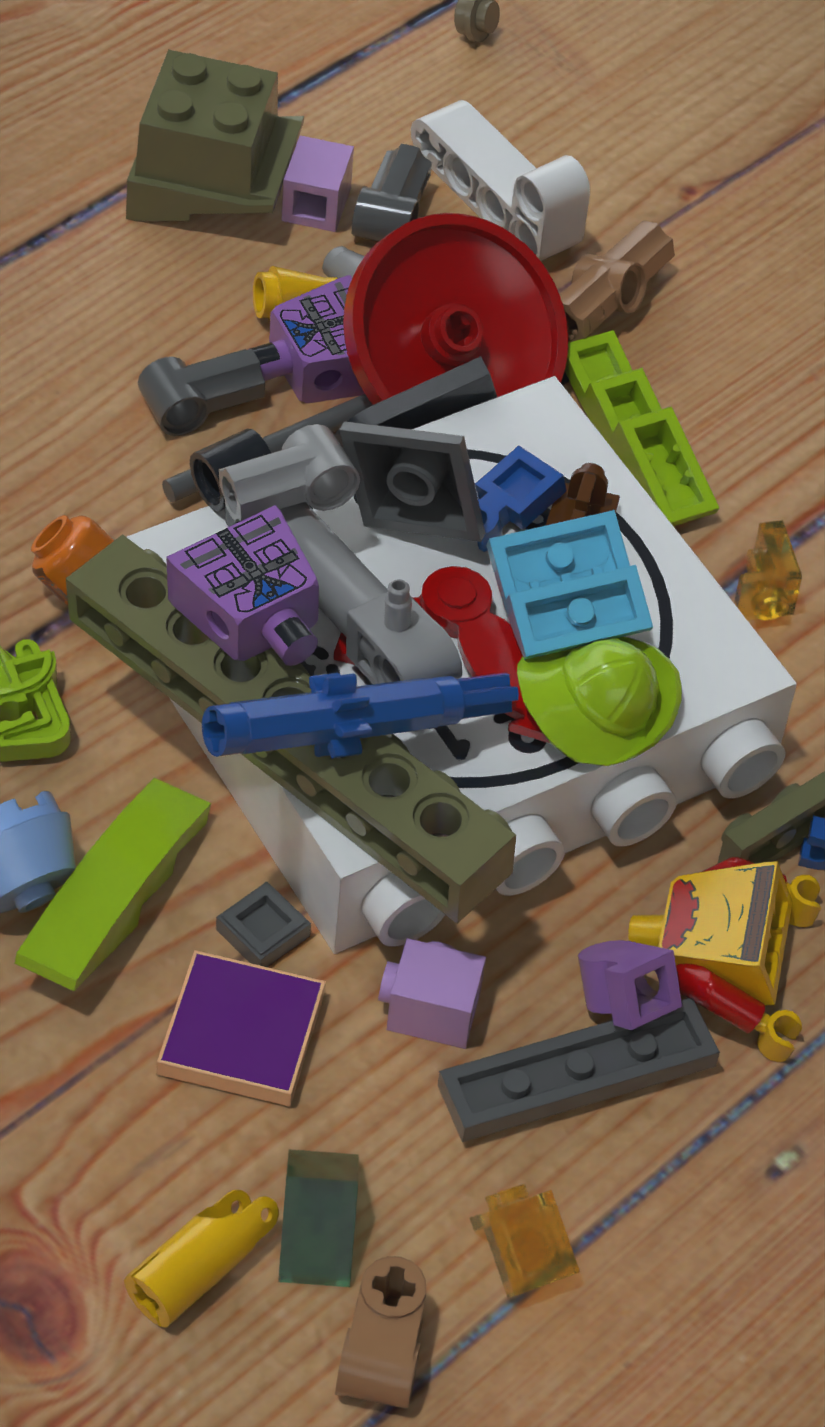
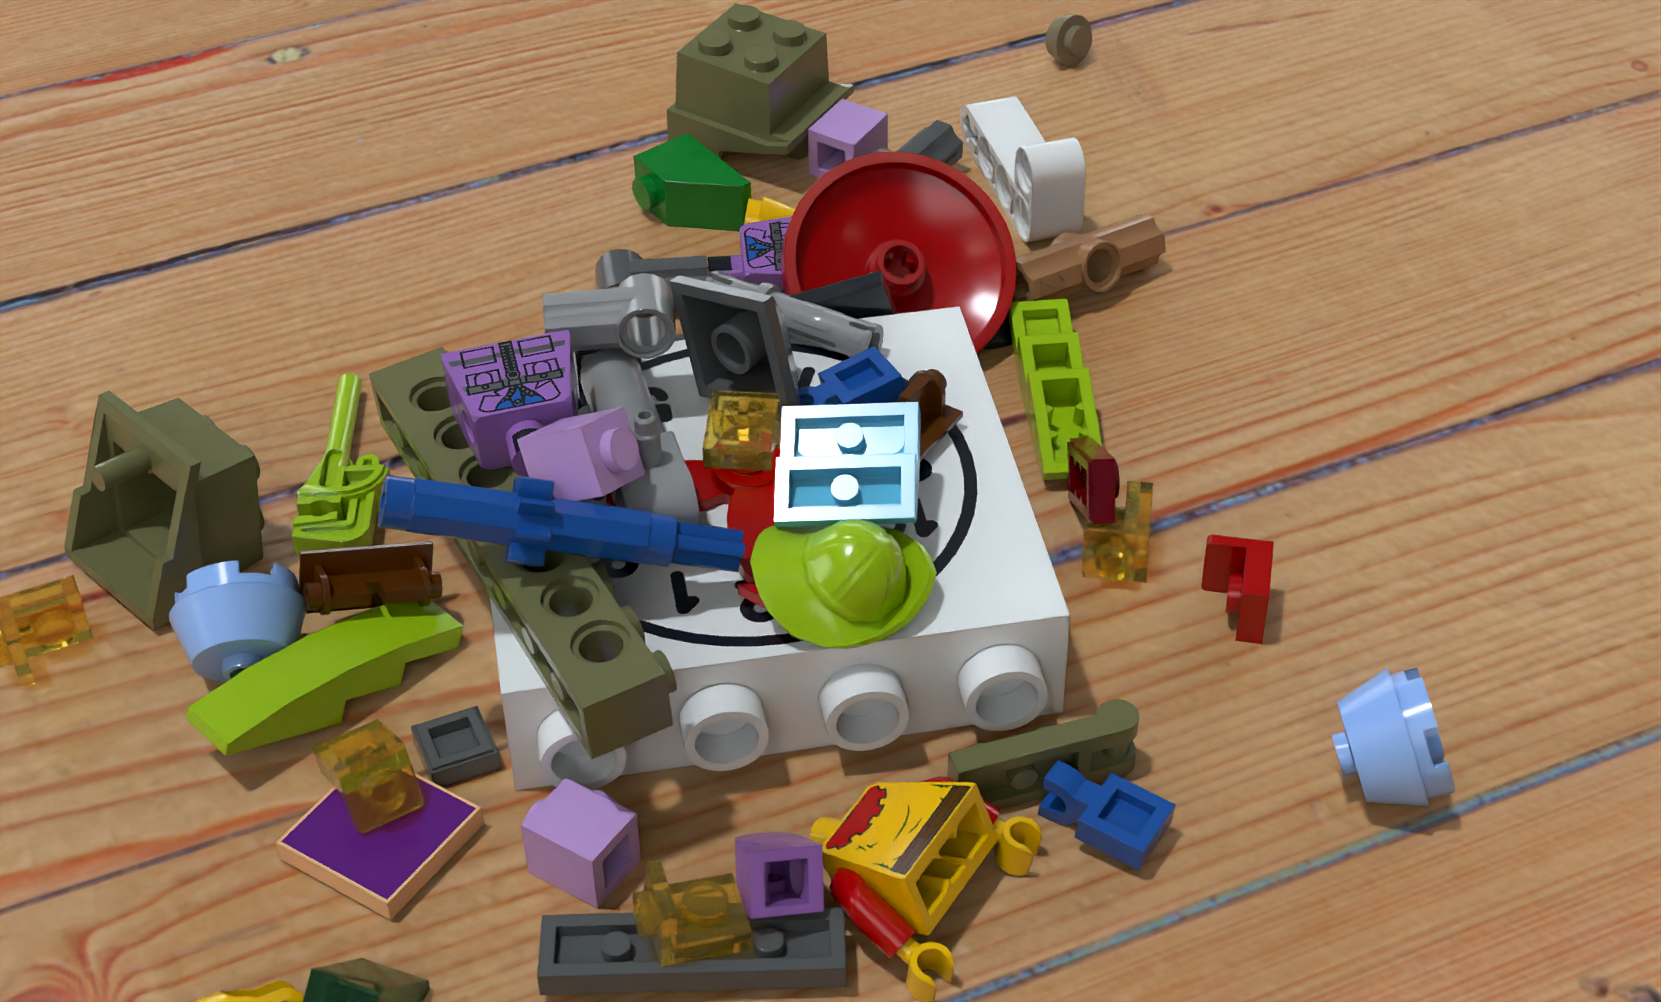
camera: 25 degrees right, 10 degrees down
(110, 778) = (368, 577): none -> reddish brown hinge
(186, 264) = (690, 186): none -> green slope
(220, 971) = (371, 774): none -> clear yellow bracket
(358, 635) = (584, 454): none -> lavender brick
(448, 566) = (742, 430): none -> clear yellow bracket
(481, 433) = (814, 322): none -> light grey pin
(576, 1040) = (691, 916): none -> clear yellow bracket
(727, 528) = (1092, 480): none -> dark red plate

